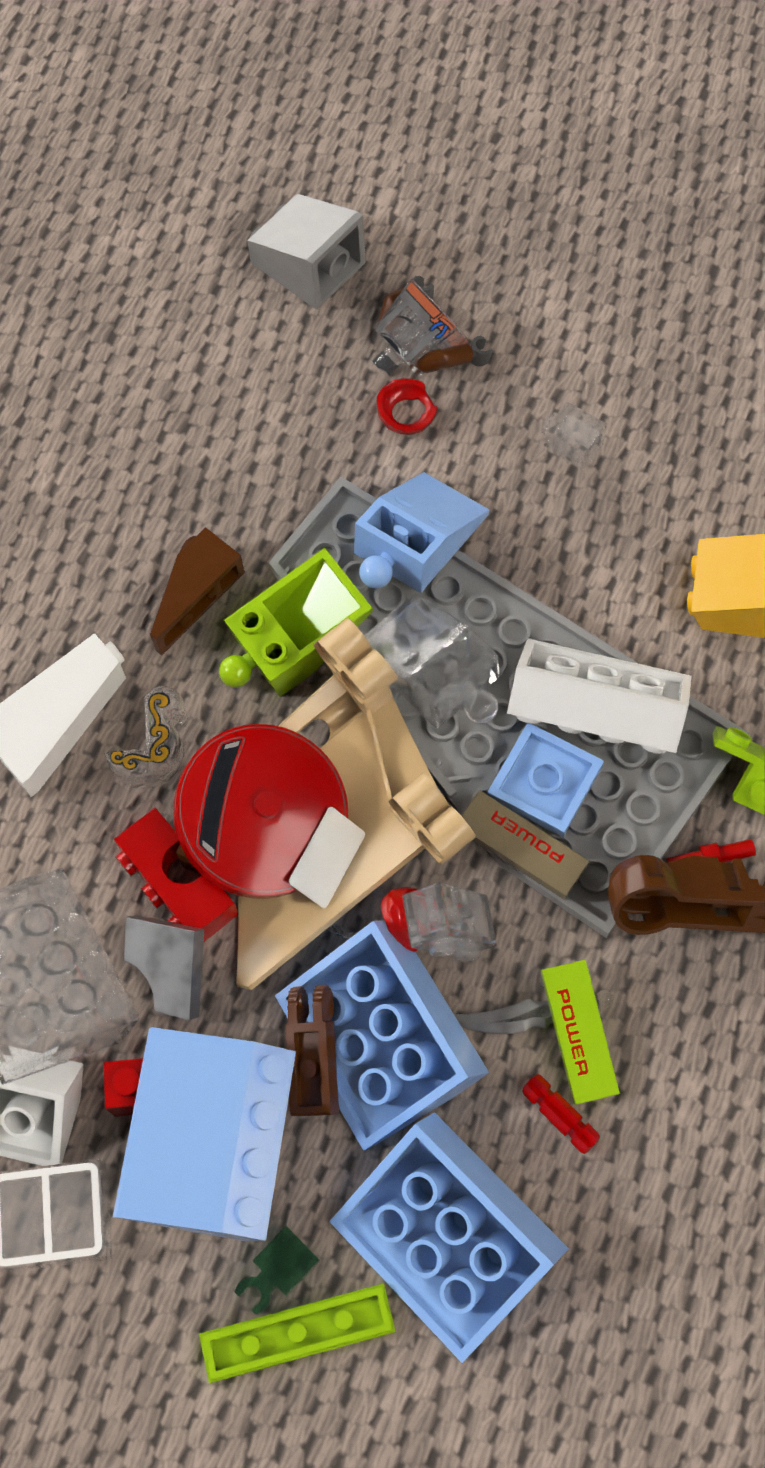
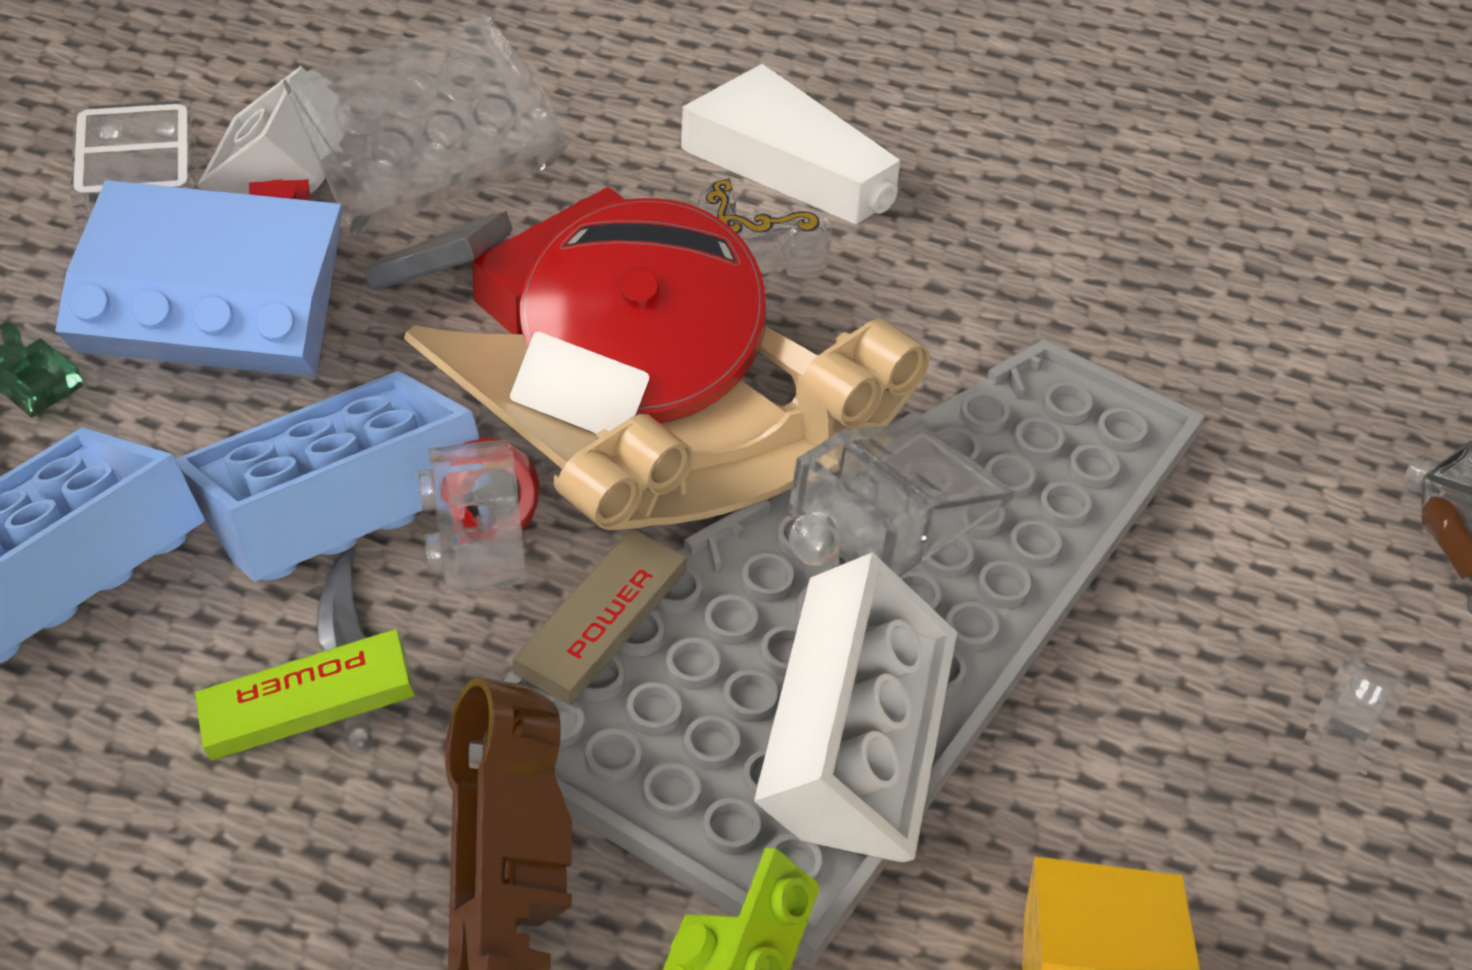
camera: 80 degrees right, 20 degrees down
(198, 579) = (990, 265): reddish brown slope -> none
(292, 619) = (970, 350): lime slope -> none
(314, 1070) = (308, 388): reddish brown hinge -> none
(402, 390) = (1360, 482): red piece -> none
(414, 532) = (1119, 480): light blue slope -> none
(545, 779) = (710, 648): light blue tile -> none
(560, 1113) = (183, 677): red axle -> none
(725, 853) = (593, 899): red bar -> none

